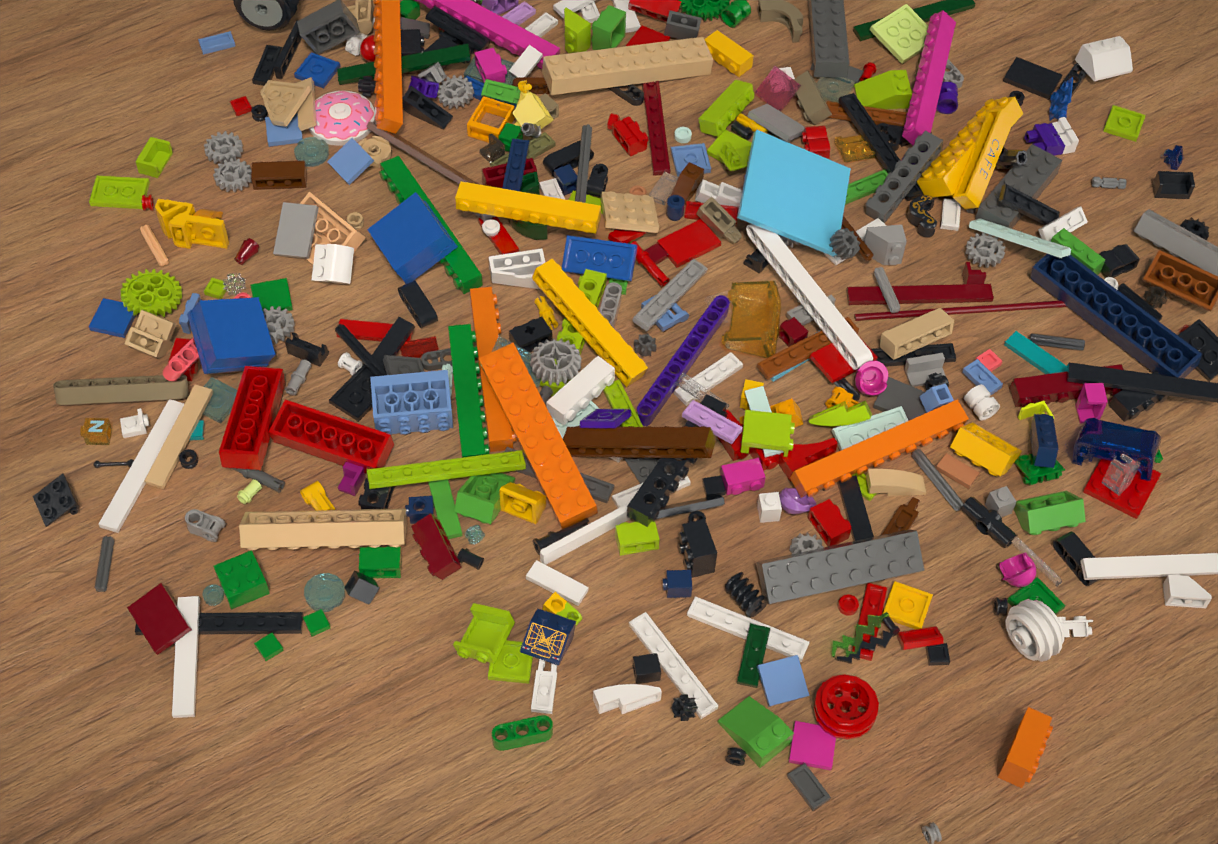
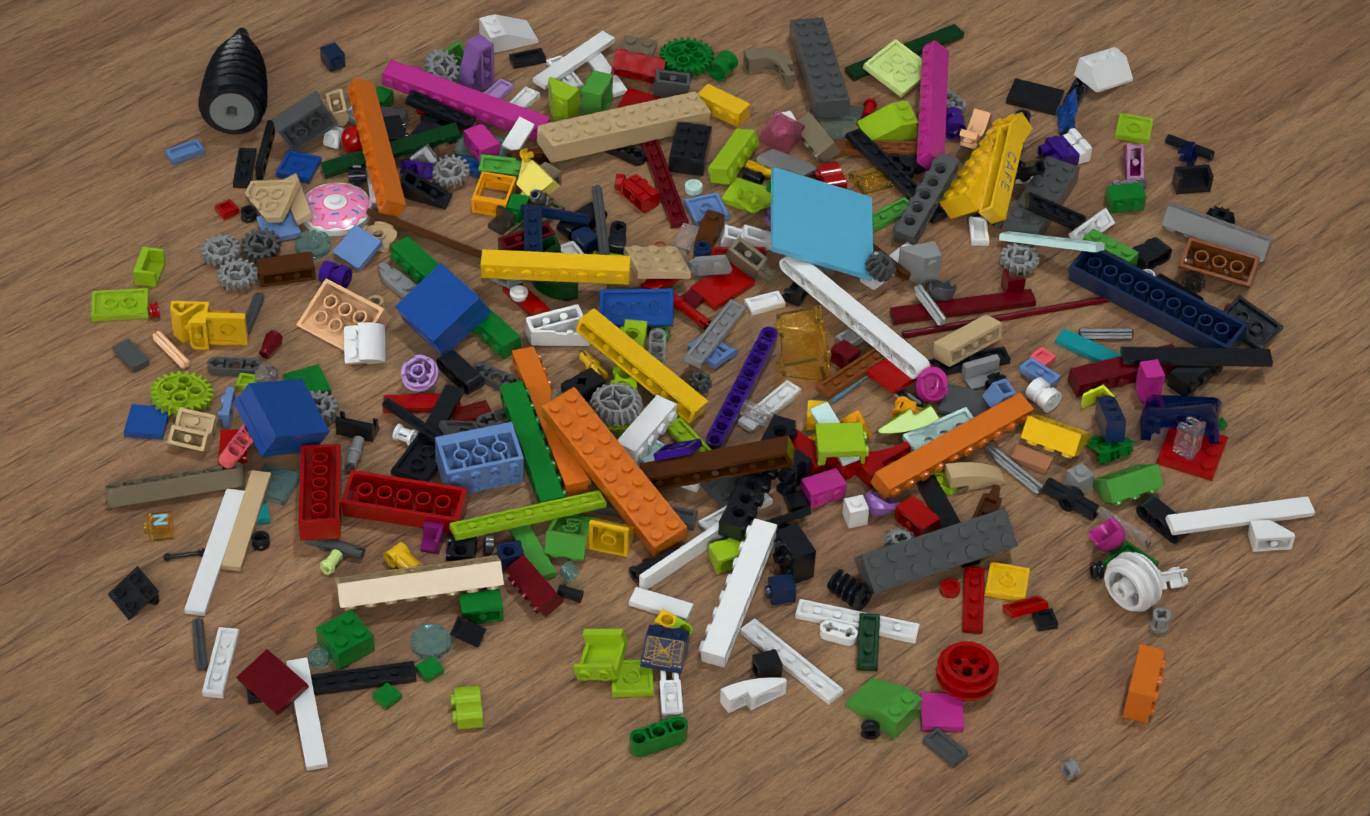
camera: 10 degrees left, 10 degrees down
(115, 246) = (130, 355): none -> dark grey tile
(119, 586) = (220, 662): none -> white tile
(134, 425) = (196, 516): white bracket -> none
(202, 265) = (221, 370): none -> dark grey beam
(207, 525) = (292, 596): light grey piece -> none
(238, 215) = (253, 310): none -> dark grey axle
(270, 146) = (260, 244): none -> dark grey gear
(295, 230) = (318, 317): light grey tile -> none
(323, 186) = (338, 274): none -> dark purple wheel
(342, 672) = (468, 707): none -> lime brick
(377, 302) = (420, 373): none -> lavender cone
(379, 198) = (396, 280): none -> light grey hinge
(403, 493) = (488, 543): none -> dark grey tile
(449, 307) = (489, 372): none -> dark grey beam
(548, 151) = (562, 215): none -> dark blue axle
(633, 585) = (738, 593): none -> white brick
(678, 221) = (709, 265): none -> light grey hinge
(684, 707) = (811, 693): black gear -> none
(687, 95) = (690, 149): none -> black brick
(706, 417) = (802, 442): lavender tile -> none
(721, 455) = (791, 477): none -> black hips
(726, 266) = (764, 303): none -> white tile
(726, 640) = (838, 632): none -> white beam
(783, 680) = (901, 659): medium blue tile -> none
(873, 621) = (967, 618): piece -> none
(901, 275) = (941, 291): none -> dark grey hair
(919, 215) = (948, 234): black animal -> none
(968, 107) = (976, 129): none -> light nougat arch
(1054, 672) = (1162, 623): none -> light grey bush
(1102, 197) = (1125, 198): none -> green brick
(1117, 159) = (1133, 161): none -> magenta slope
(1169, 144) = (1179, 142): none -> black axle

